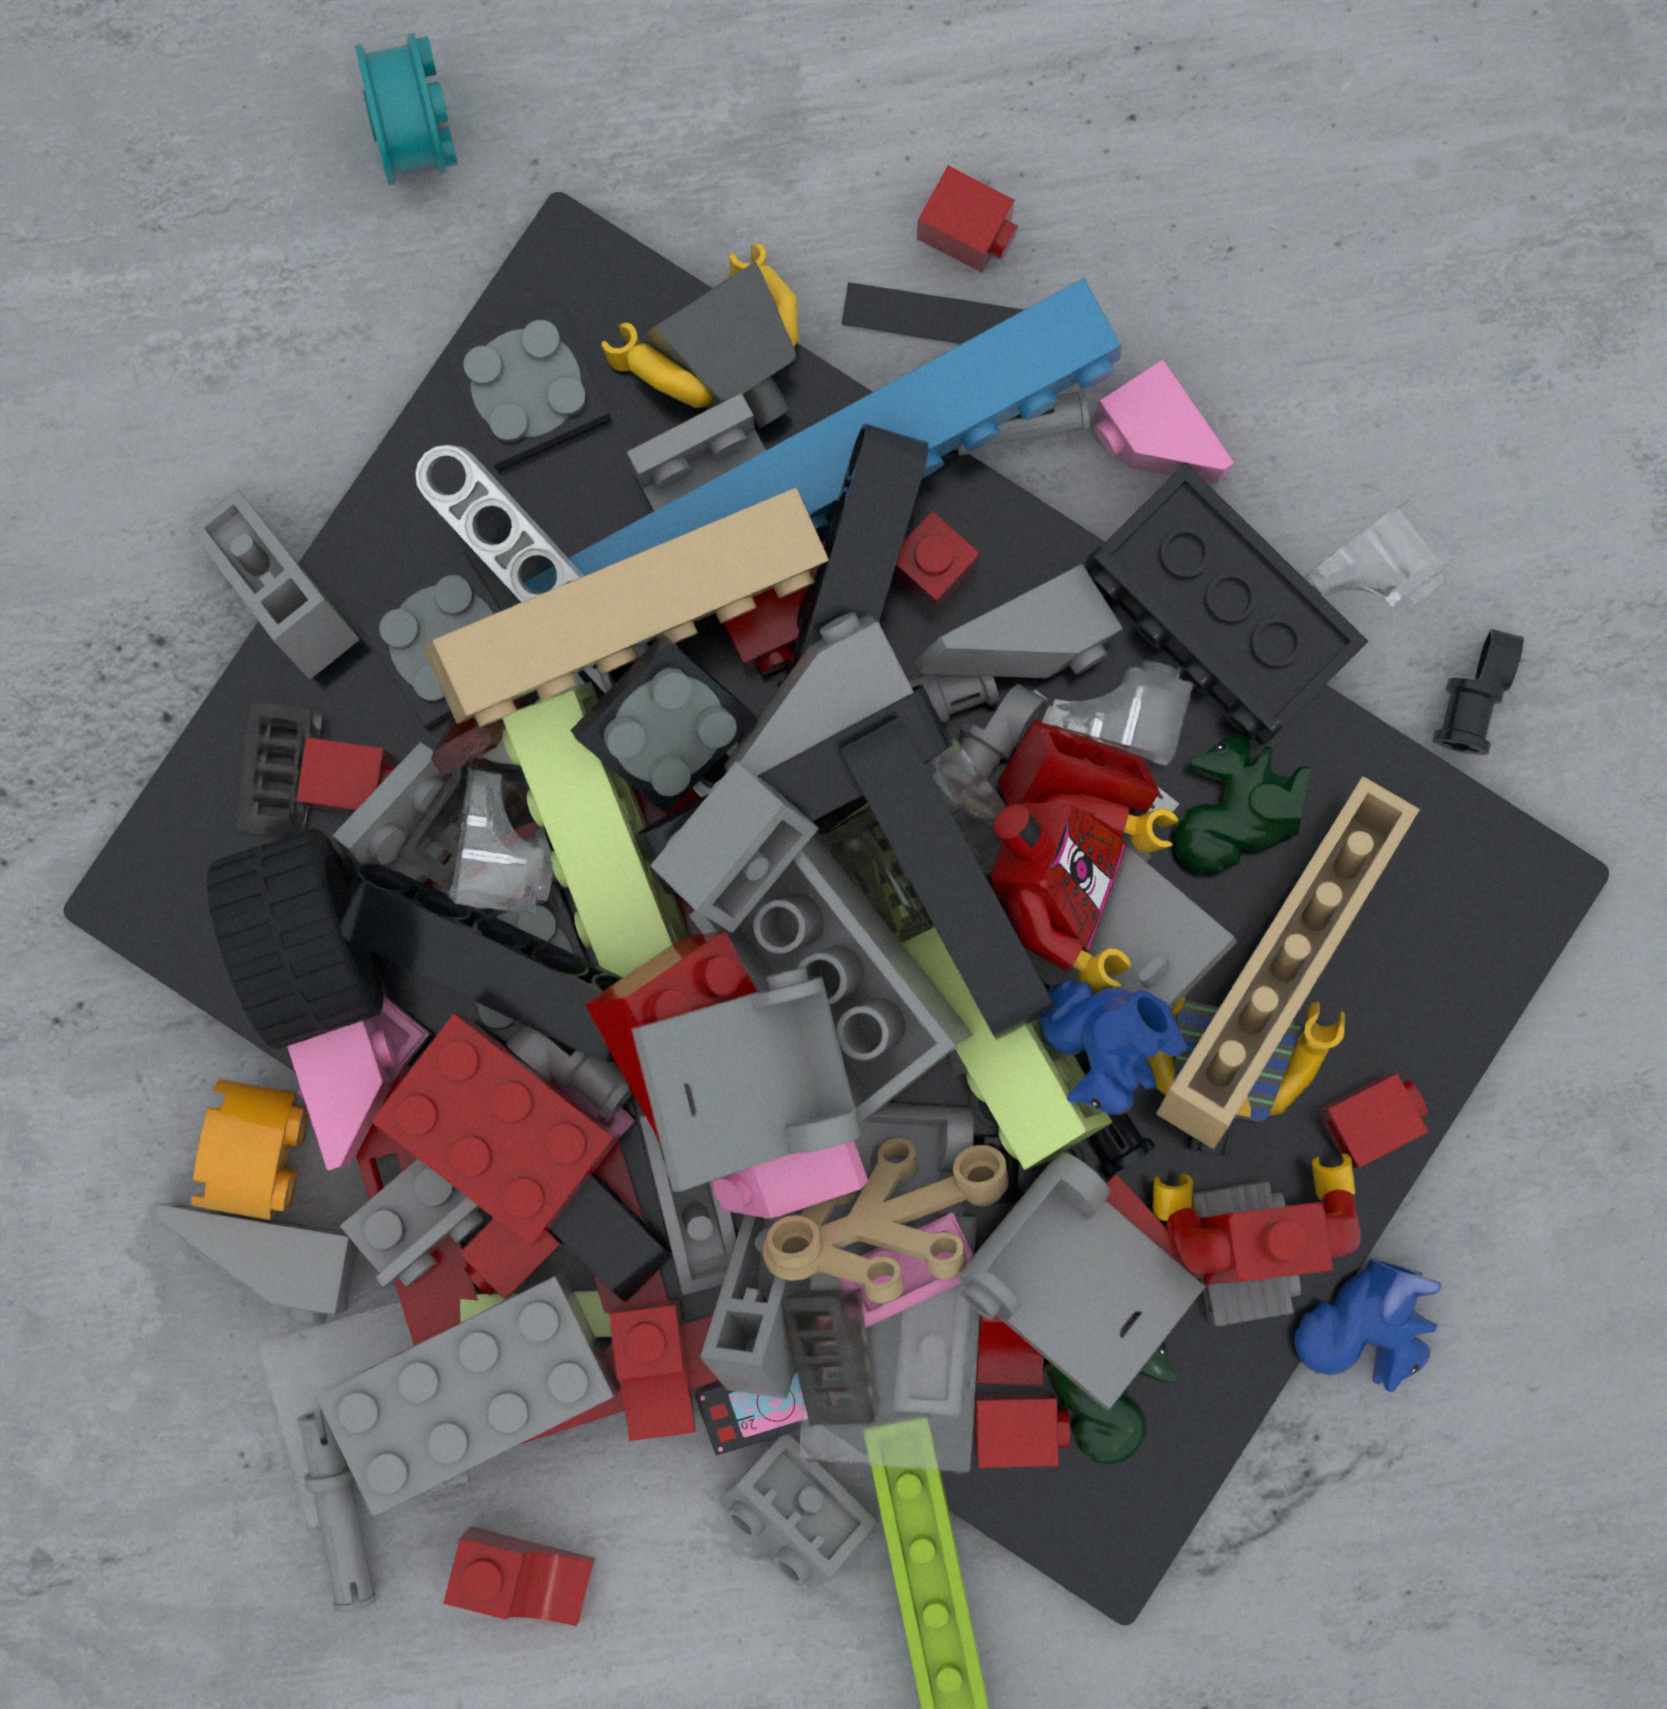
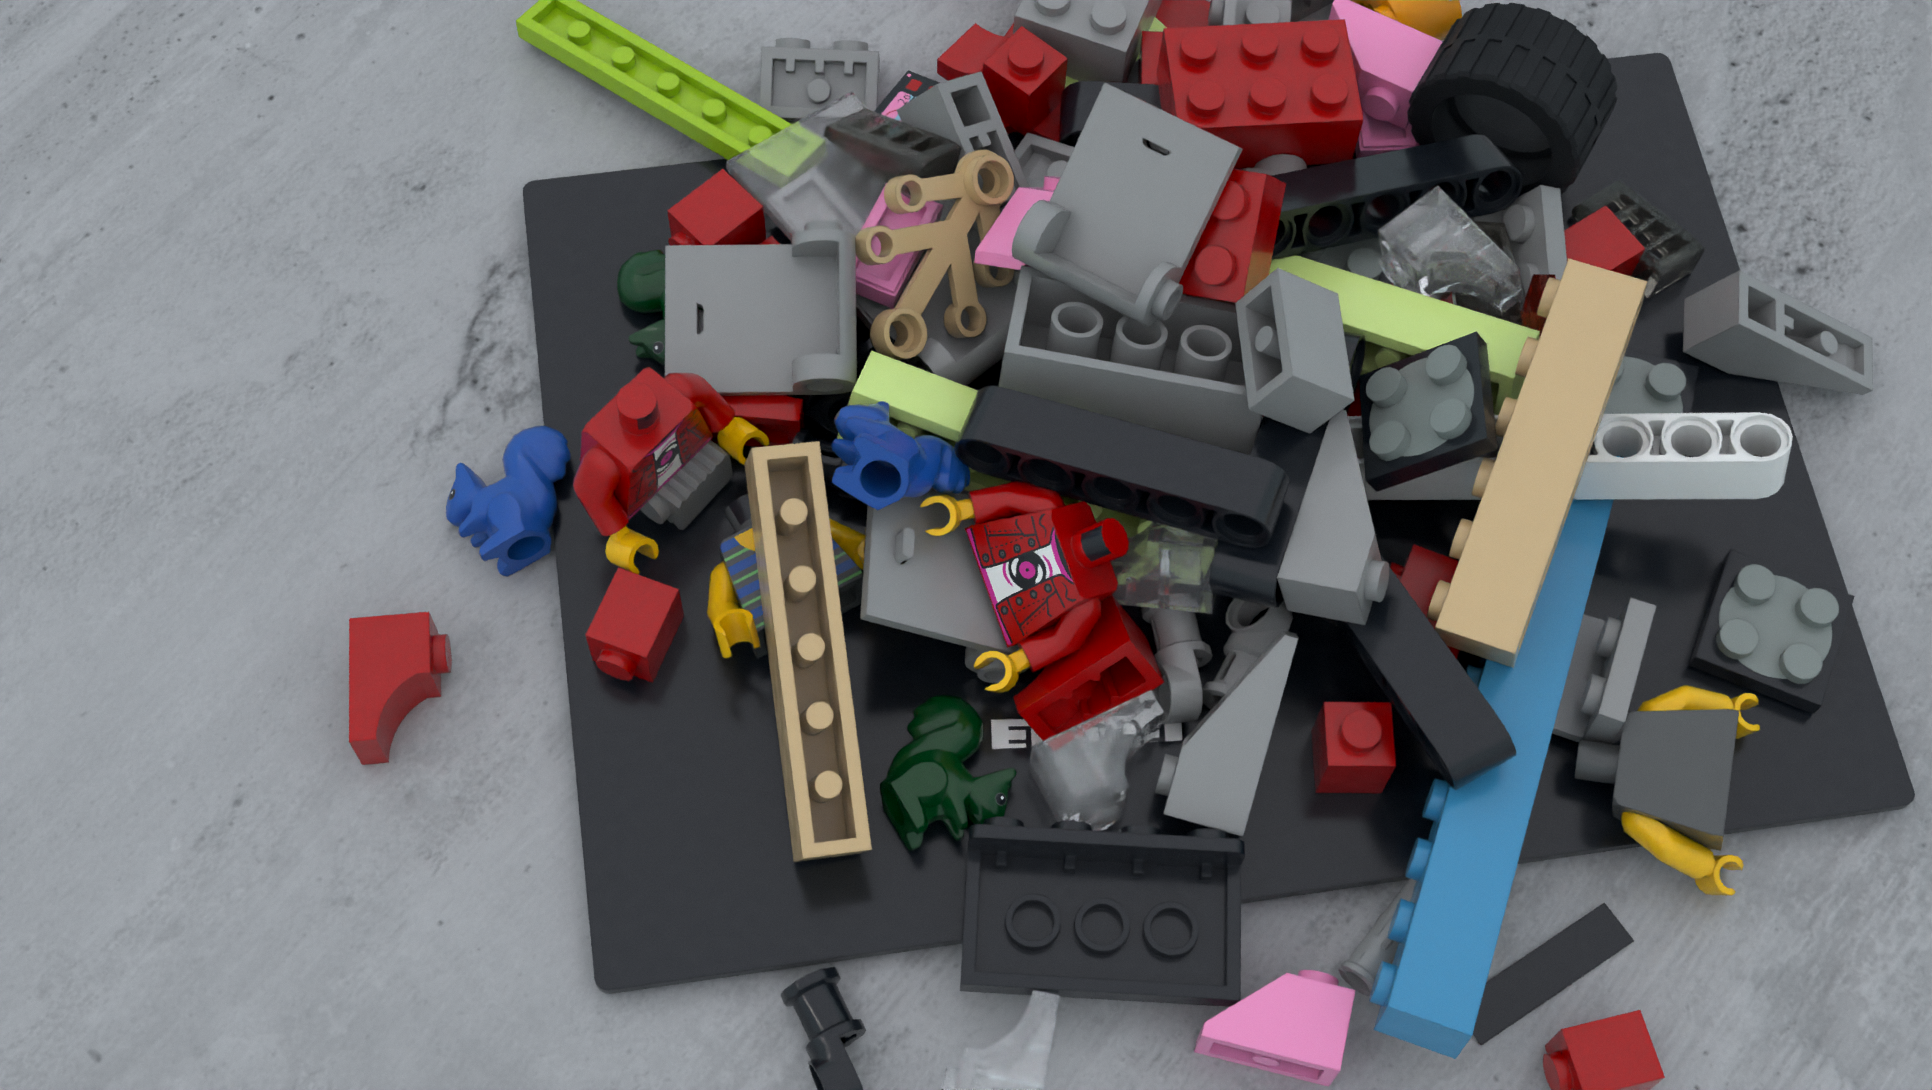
camera: 130 degrees right, 20 degrees down
(1579, 1254) = (391, 670): none -> red arch

